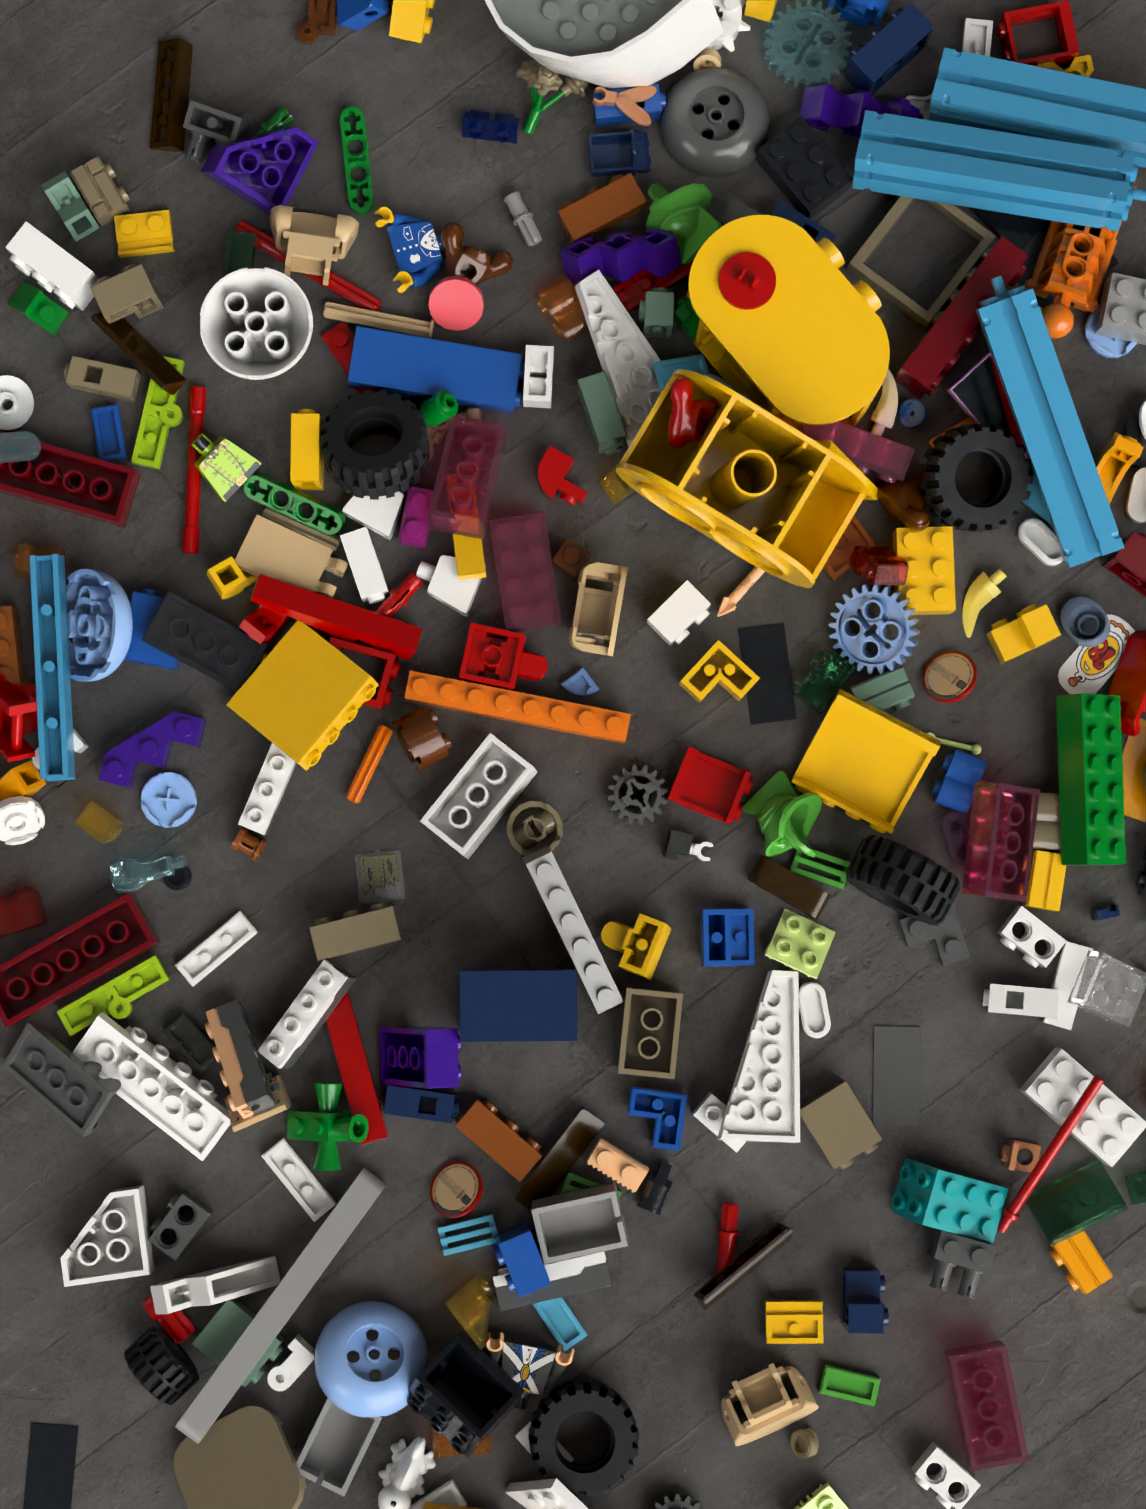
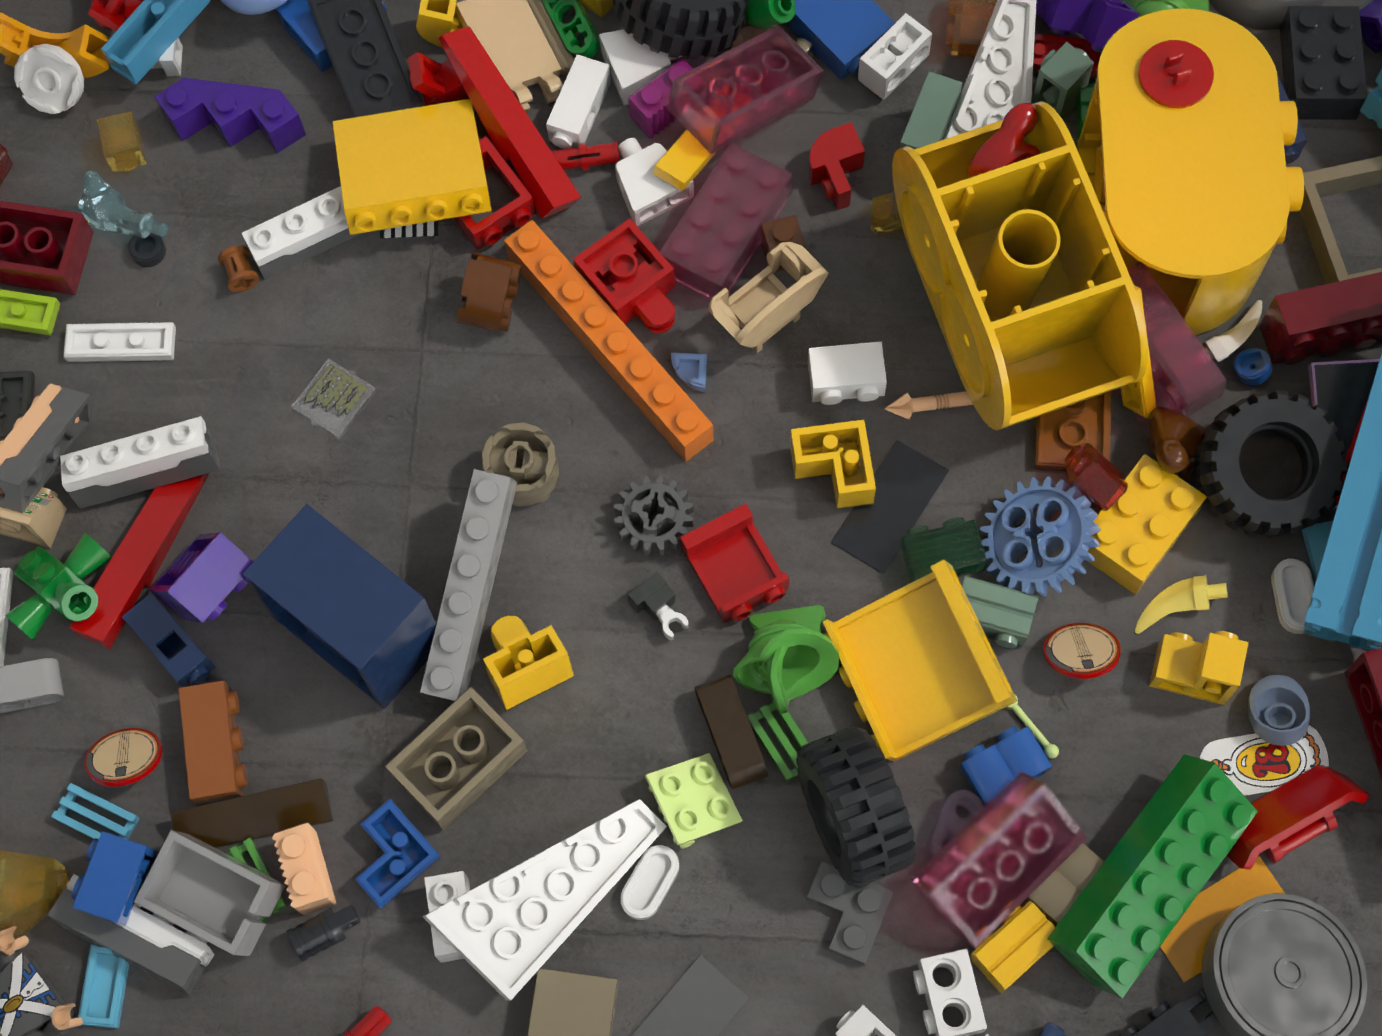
camera: 45 degrees right, 15 degrees down
(168, 799) = (205, 175): light blue tile -> none
(356, 931) = (259, 421): dark tan brick -> none
(369, 764) = (418, 285): orange axle -> none
(479, 796) = (493, 387): white brick -> none
(727, 937) = (620, 727): blue brick -> none

